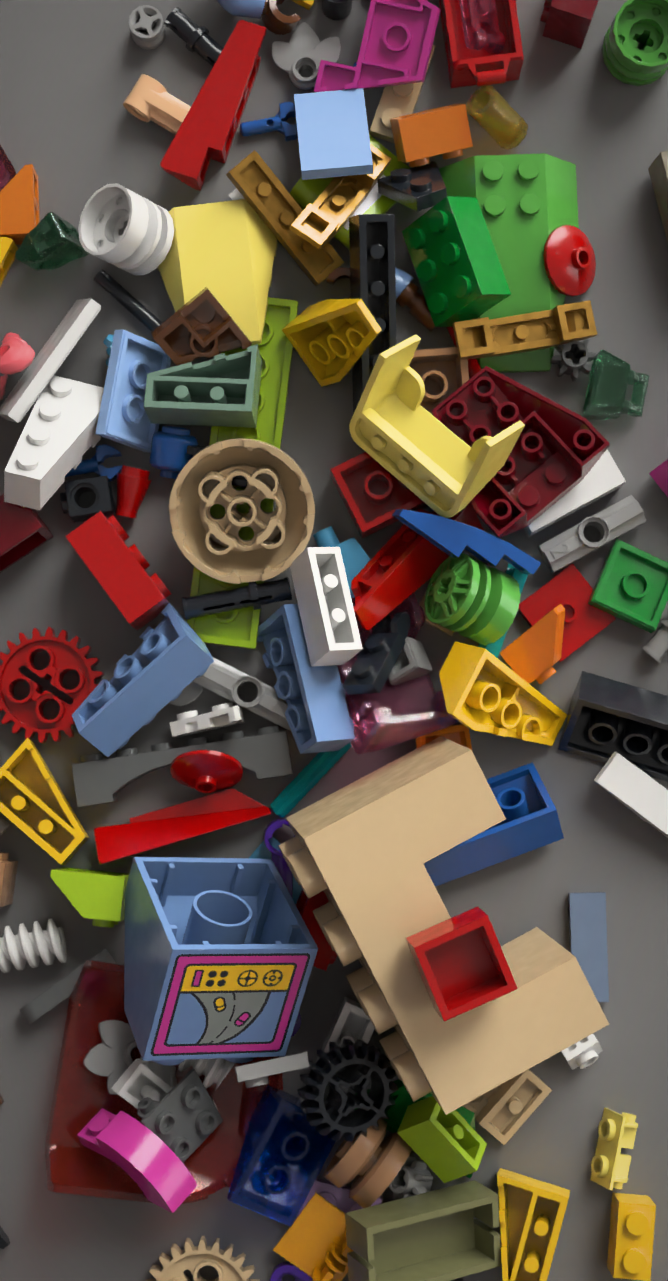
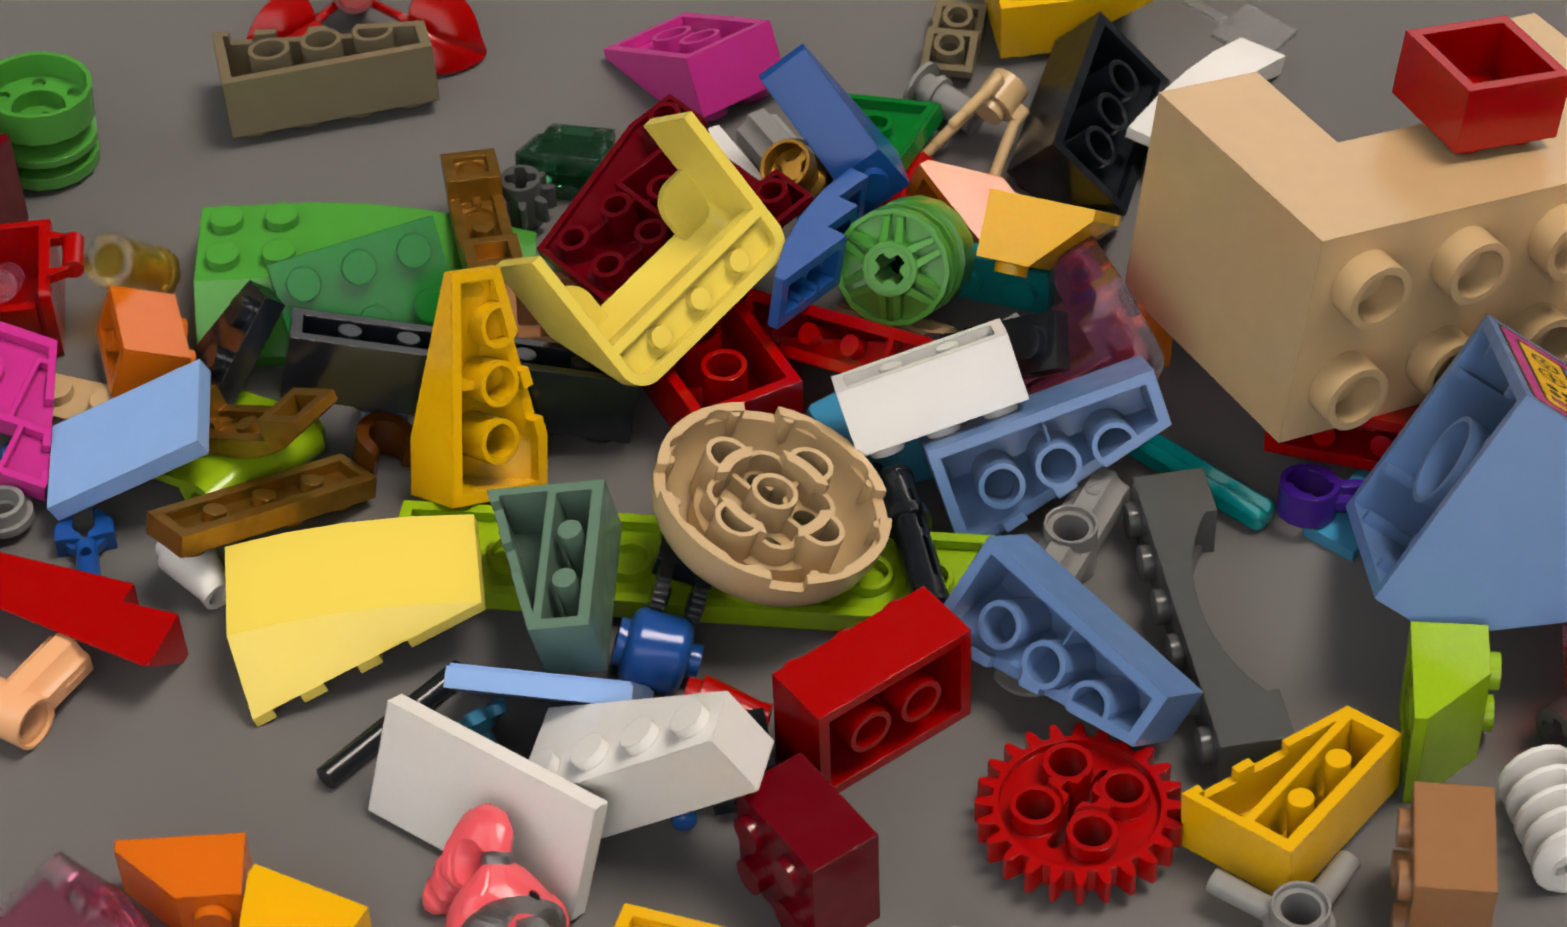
camera: 90 degrees left, 40 degrees down
(50, 244) = (268, 811): clear green piece -> none
(126, 229) = (225, 684): white wheel -> none
(176, 824) = (1308, 625): red wedge -> none
(192, 723) = (1120, 569): white wing -> none
(199, 330) = (452, 578): reddish brown slope -> none
(206, 770) = (1213, 575): red dish -> none
(556, 530) = (797, 163): none -> pearl gold wheel
(569, 260) = (370, 187): red dish -> none
(580, 558) = (834, 125): none -> blue slope
(644, 666) = (995, 101): none -> tan plant

